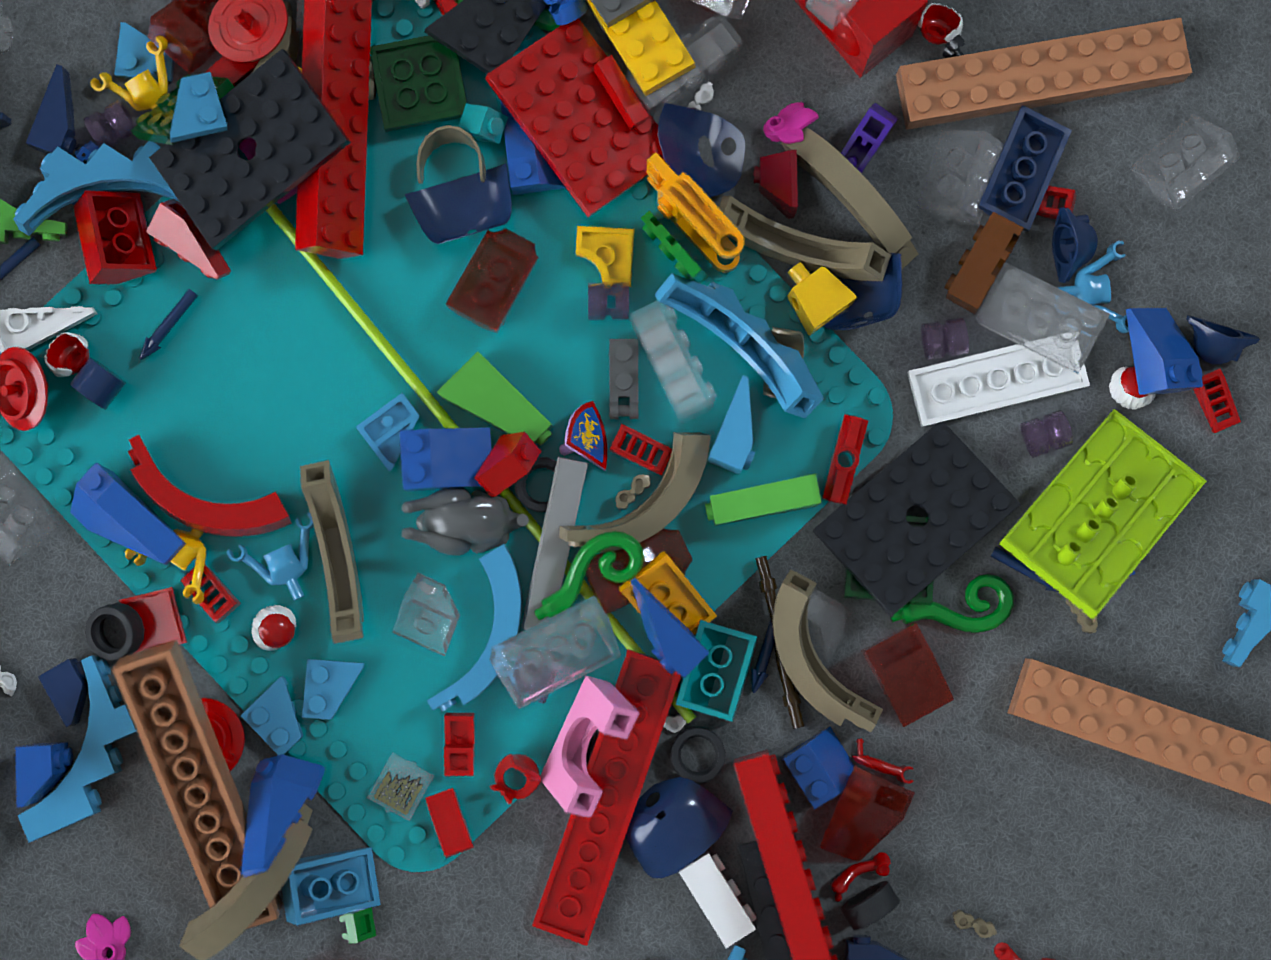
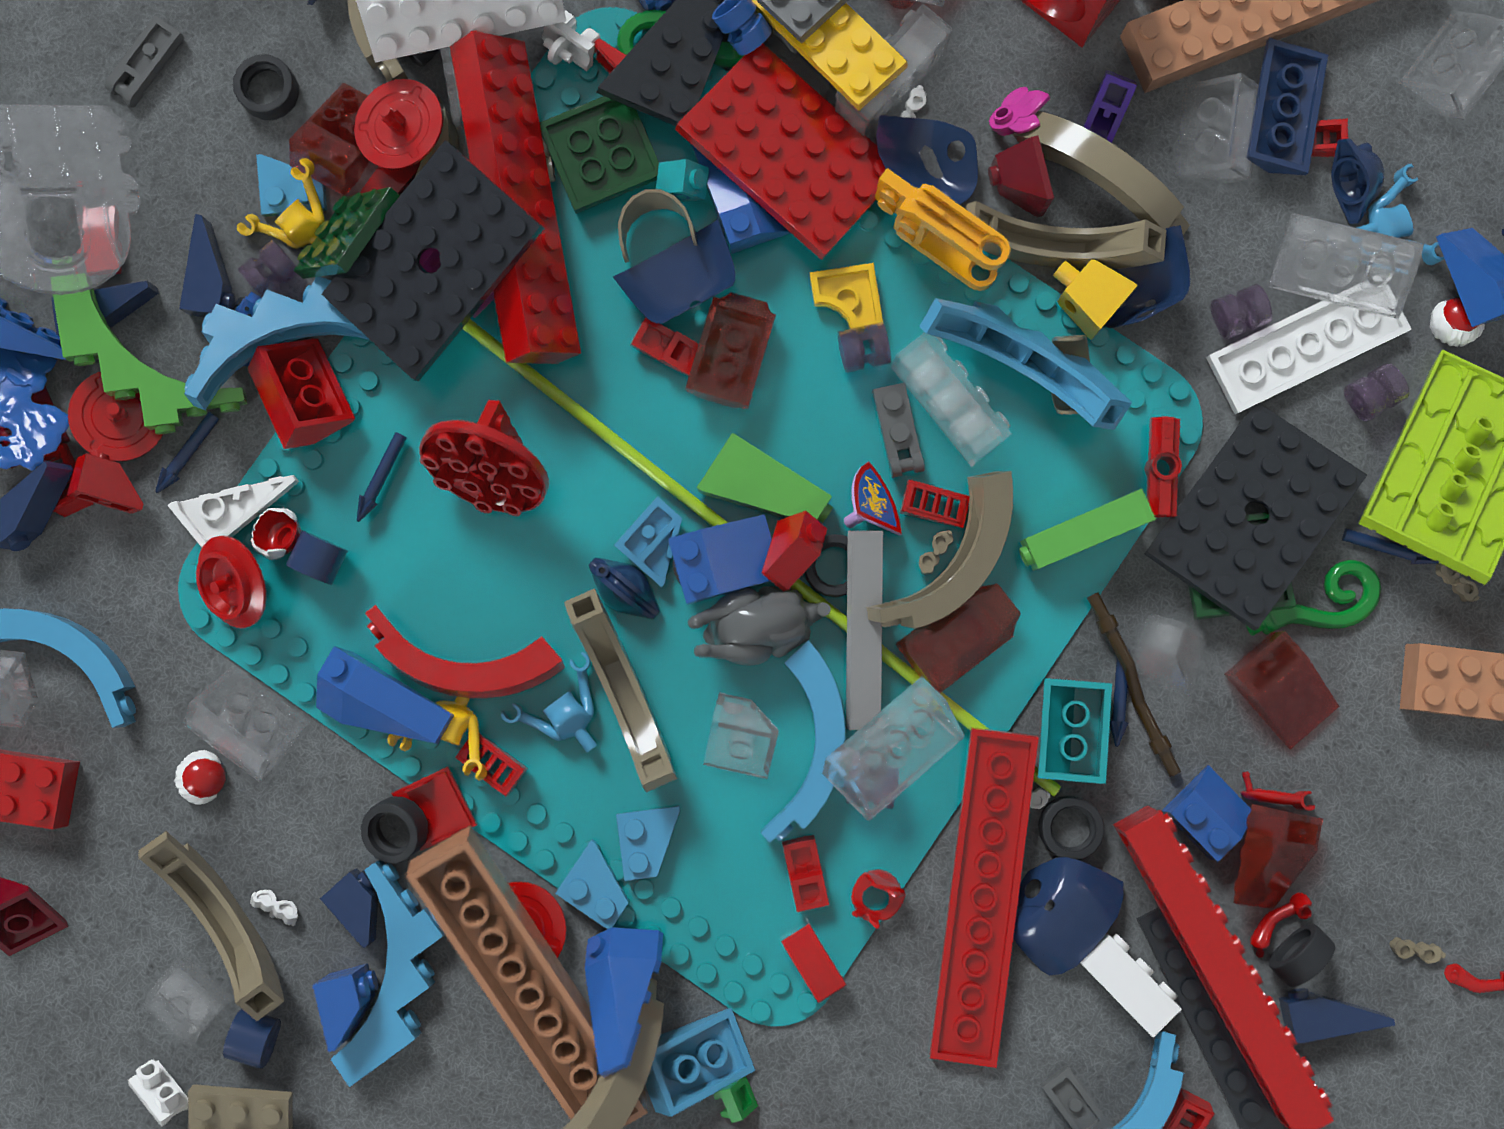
camera: 10 degrees left, 0 degrees up
(175, 229) = (370, 369): slope -> none
(197, 109) = (365, 227): dark azure wing -> none
(258, 332) = (485, 463): none -> red bracket
(273, 627) = (570, 787): red hair -> none
(357, 465) = (624, 588): none -> dark blue hat
(401, 786) = (750, 934): piece -> none
(438, 263) = (665, 346): none -> red slope
(565, 772) = (930, 874): bright pink arch -> none
(569, 592) = (893, 680): green plant -> none
(621, 92) = (828, 113): red piece -> none
(672, 249) = (935, 277): green plate -> none
(672, 590) = (1004, 665): light orange plate -> none
(673, 641) = (1019, 705): blue slope -> none
(735, 438) = (1039, 465): dark azure slope -> none
(803, 663) = (1170, 706): dark tan arch -> none
(983, 262) = (1265, 218): reddish brown wedge -> none

